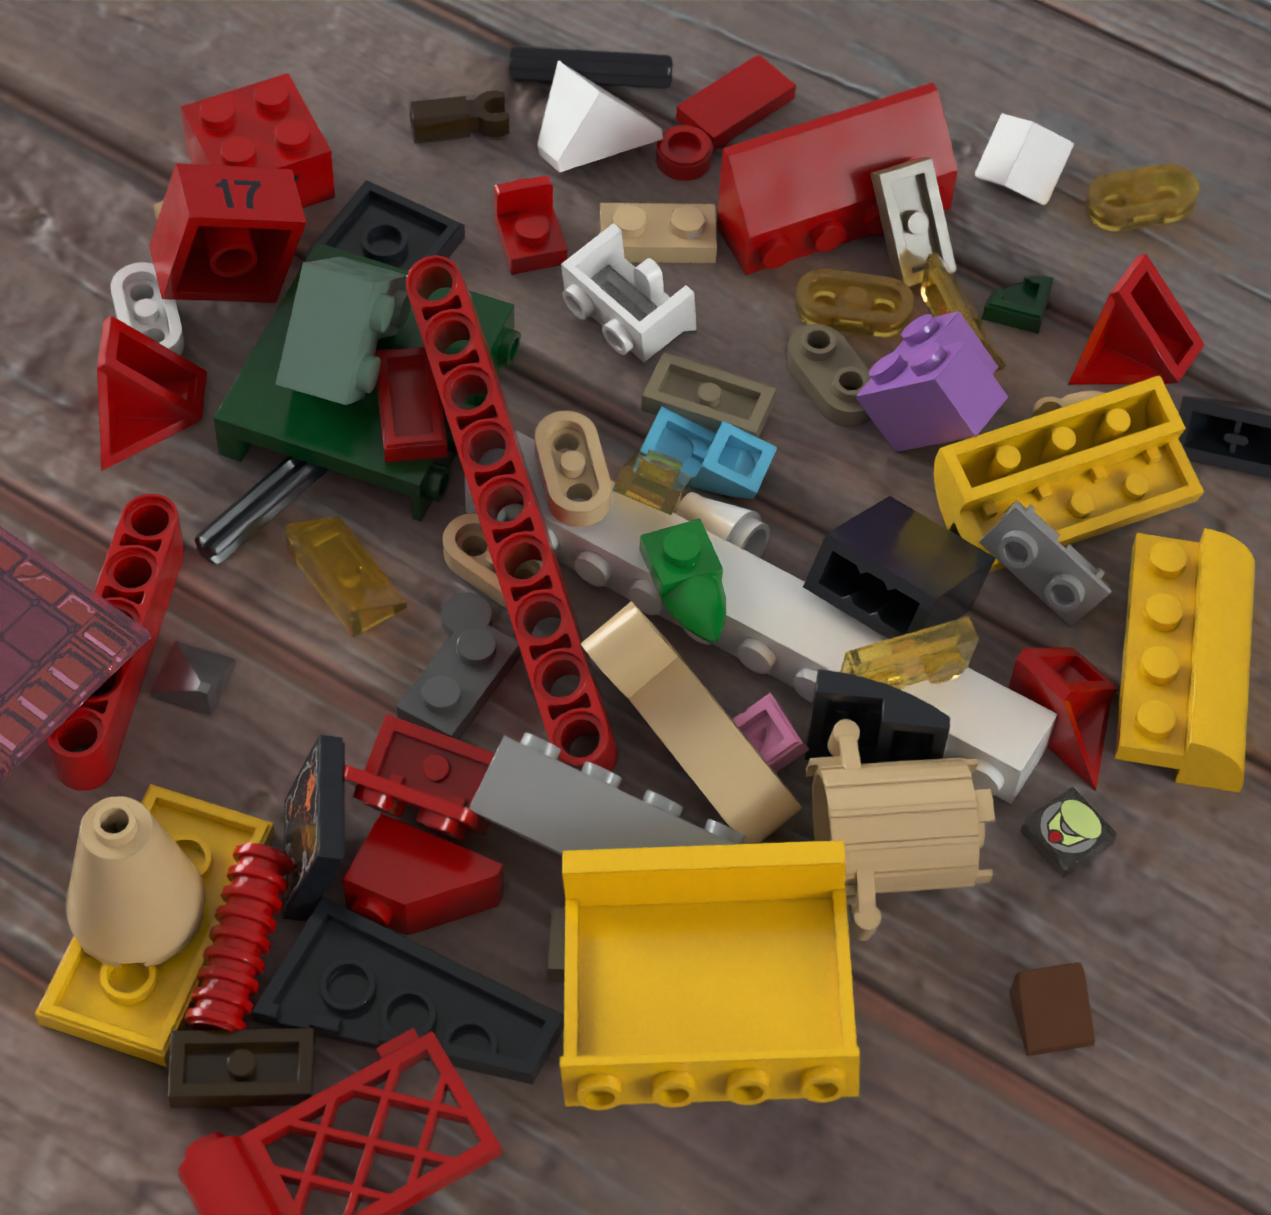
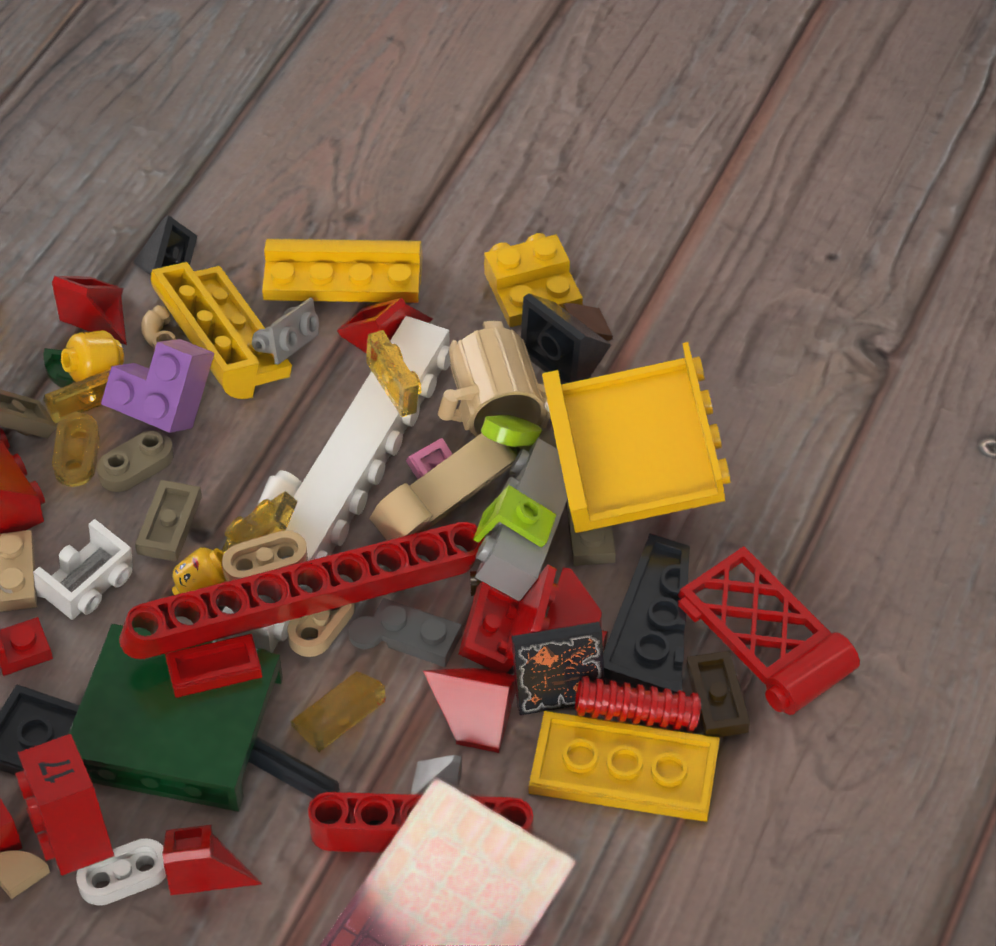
camera: 95 degrees left, 5 degrees down
(131, 887) = (623, 756): tan cone -> none
(288, 726) = (474, 704): none -> slope
(336, 328) = (167, 689): sand green brick -> none
(577, 796) = (518, 514): none -> lime bracket
(598, 405) = (198, 571): none -> yellow head
(687, 577) = (335, 497): green plate -> none
(720, 462) = (213, 512): medium azure slope -> none
(766, 802) = (510, 430): none -> lime tile
(890, 720) = (433, 384): black slope -> none
(898, 570) = (316, 393): black brick -> none
(993, 938) = (560, 340): none -> black slope
(1016, 318) = (91, 354): none -> yellow head
(1068, 832) = (465, 320): tile -> none
(1162, 939) = (533, 268): none -> yellow plate

